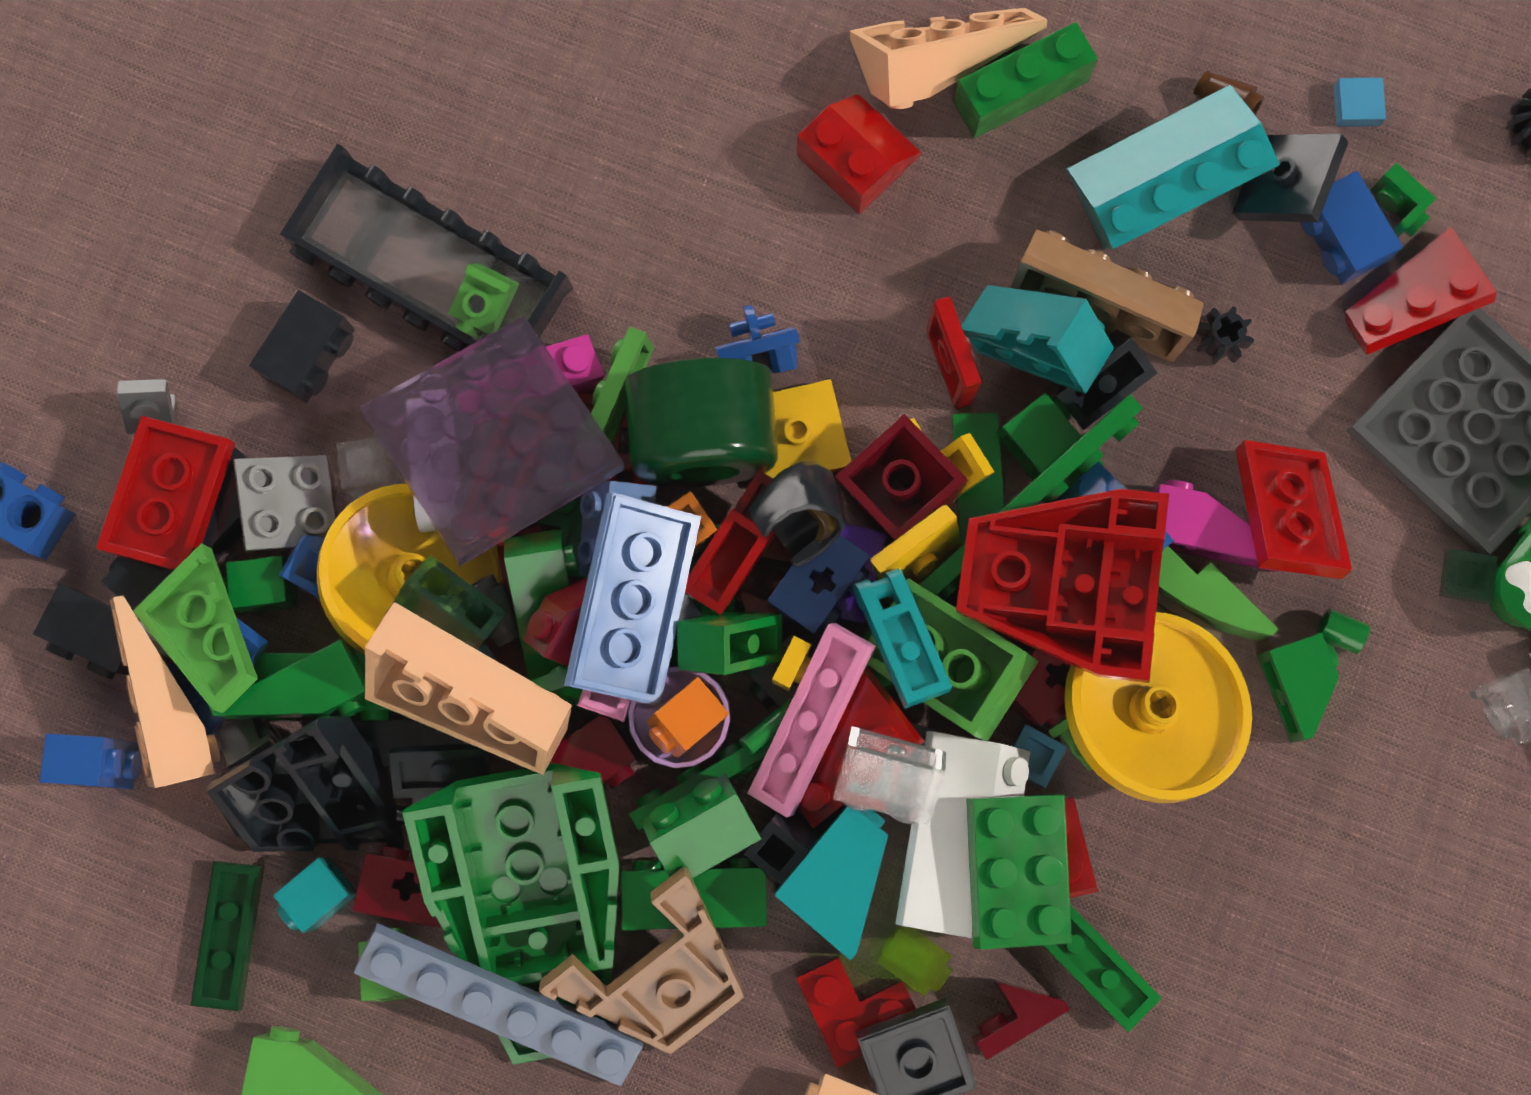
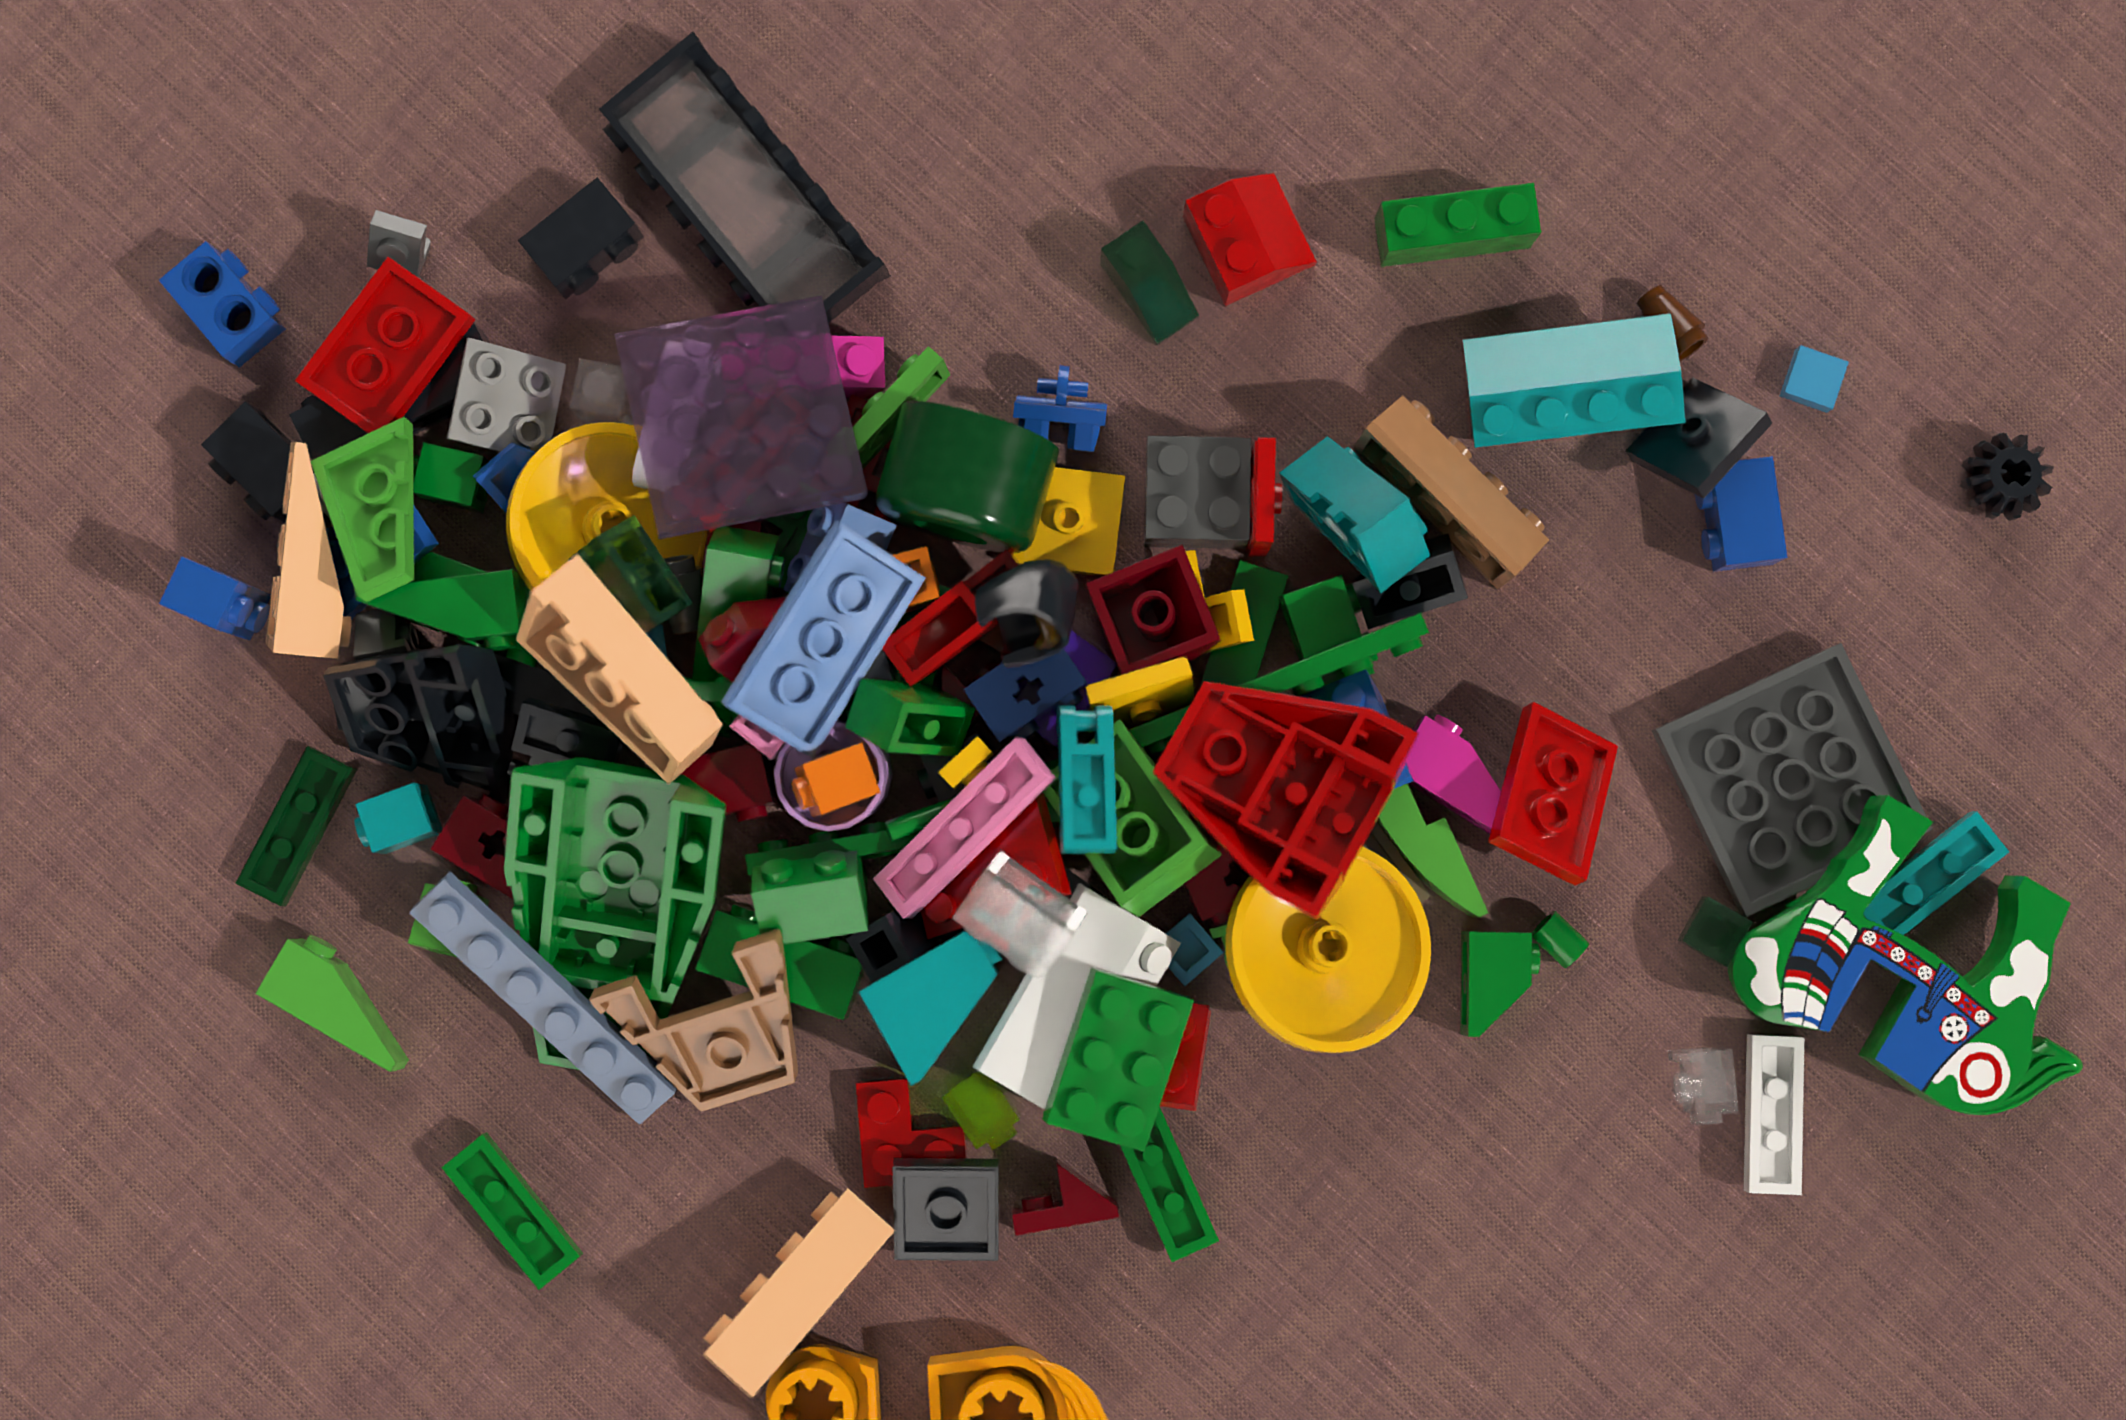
camera: 20 degrees right, 5 degrees up
(497, 294) = (802, 254): bright green brick -> none
(790, 214) = (1148, 282): none -> clear green slope
(896, 369) = (1197, 492): none -> dark grey brick
(922, 61) = (1361, 162): light nougat wedge -> none
(1224, 323) = (1567, 569): black gear -> none
(1406, 197) = (1814, 498): green bracket -> none
(1421, 294) = (1789, 615): wing -> none

